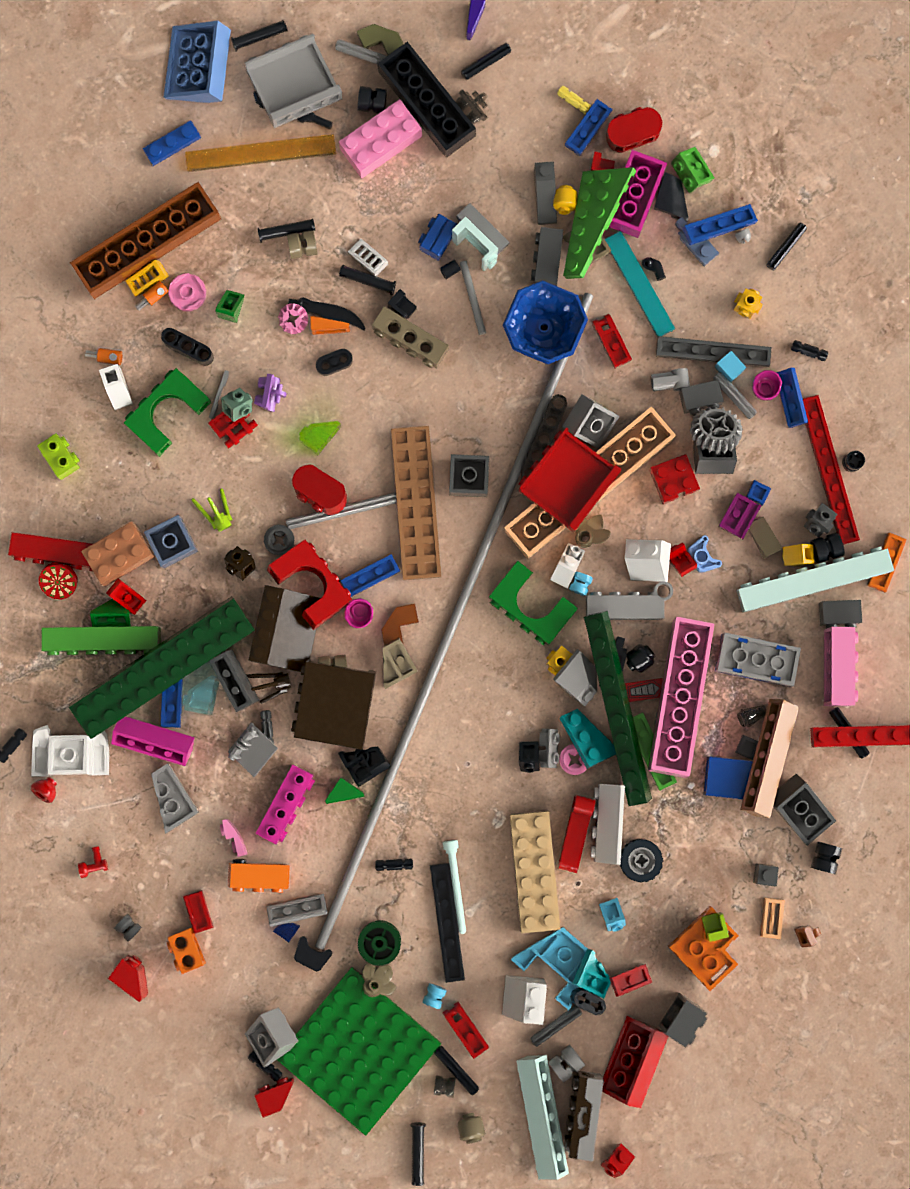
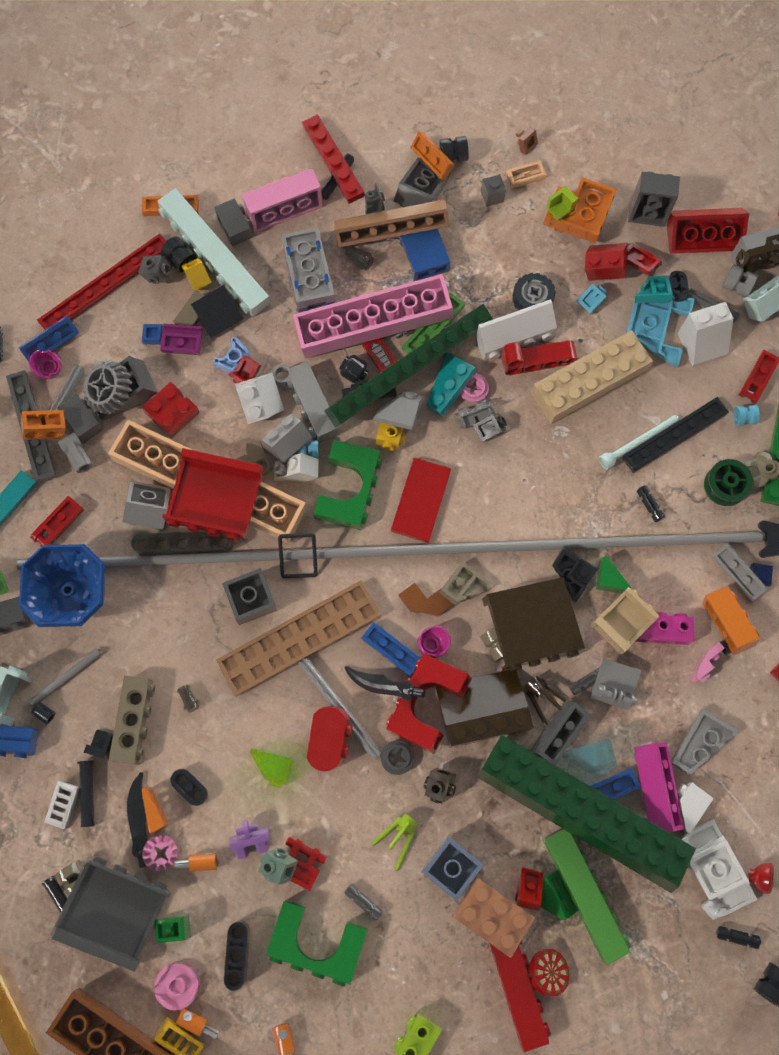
camera: 115 degrees left, 10 degrees down
(116, 386) = (314, 1014): white slope -> none
(127, 761) = (693, 804): none -> white slope
(180, 462) = (363, 902): none -> dark grey axle
(222, 384) = (286, 893): light grey piece -> none
(264, 262) = (109, 913): none -> dark grey panel
(271, 346) = (199, 862): none -> orange piece
(298, 780) = (625, 620): none -> tan panel
(341, 554) = (382, 685): none -> black sword
(407, 390) = (188, 698): none -> clear smoke pin
(483, 546) = (314, 555): none -> black piece
(490, 662) = (421, 500): none -> red tile
(596, 566) = (286, 438): none -> light grey slope
(644, 946) = (606, 261): none -> red slope
(704, 361) = (43, 424): none -> orange brick
(730, 366) = (39, 401): medium azure panel -> none
(747, 747) = (389, 250): dark grey tile -> none
(752, 558) = (217, 311): none -> black tile
(799, 752) = (374, 201): none -> dark grey hinge
(828, 832) = (432, 155): none -> orange tile
(857, 460) = (88, 265): black wheel -> none

